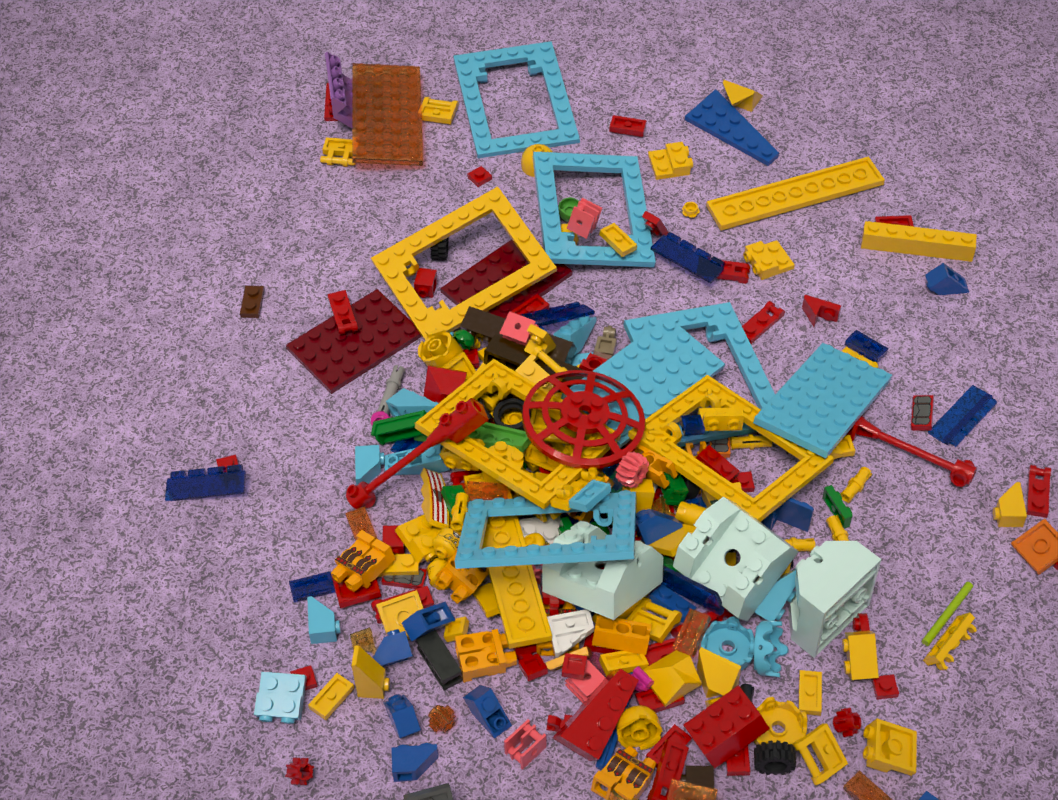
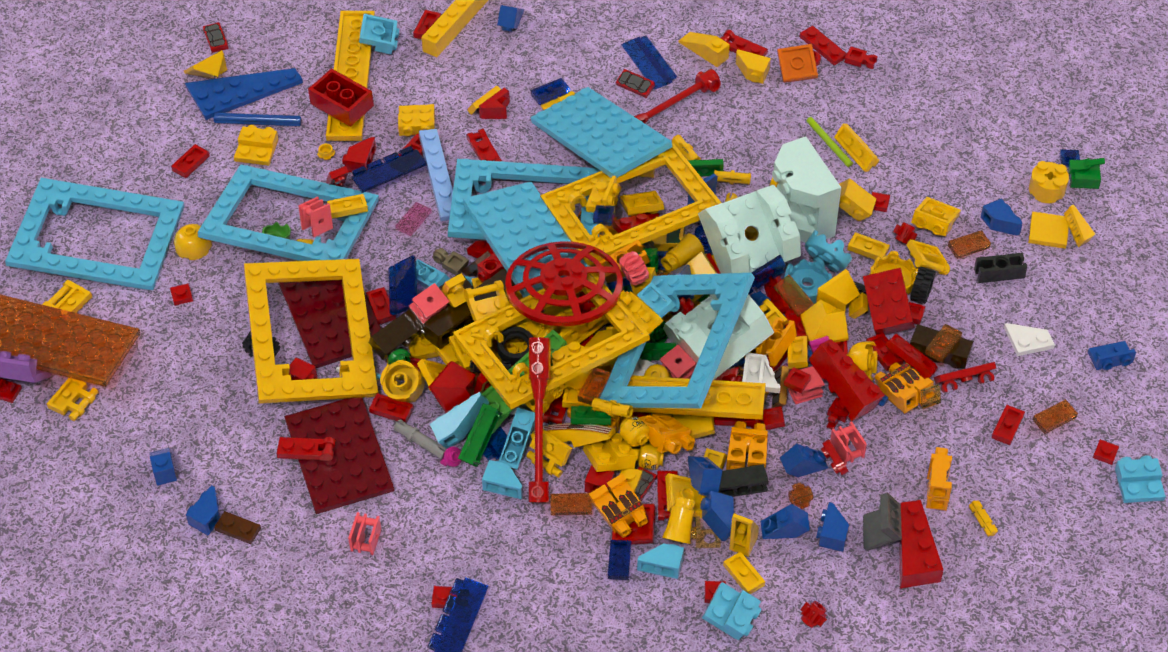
camera: 70 degrees left, 0 degrees up
(257, 273) = (204, 512): none -> blue slope
(270, 382) = (357, 534): none -> coral piece
(293, 229) = (162, 466): none -> blue slope
(362, 617) = (680, 521): none -> yellow plant
(408, 488) = (553, 449): none -> yellow plate
(414, 364) = (391, 409): none -> red plate
(495, 743) = (837, 464): none -> red plate
(646, 299) = (413, 219): none -> clear pink tile
(698, 233) = (359, 154): none -> red slope
(703, 151) = (257, 119): none -> blue axle
(717, 288) = (437, 171): none -> light blue plate
(749, 190) = (341, 97): none -> red brick
(755, 466) = (642, 203): none -> yellow plate
(784, 89) = (215, 37): none -> tile
(821, 296) = (475, 106): none -> yellow tile
(854, 191) = (379, 33): none -> medium azure plate
(1012, 458) = (707, 46): none -> yellow slope

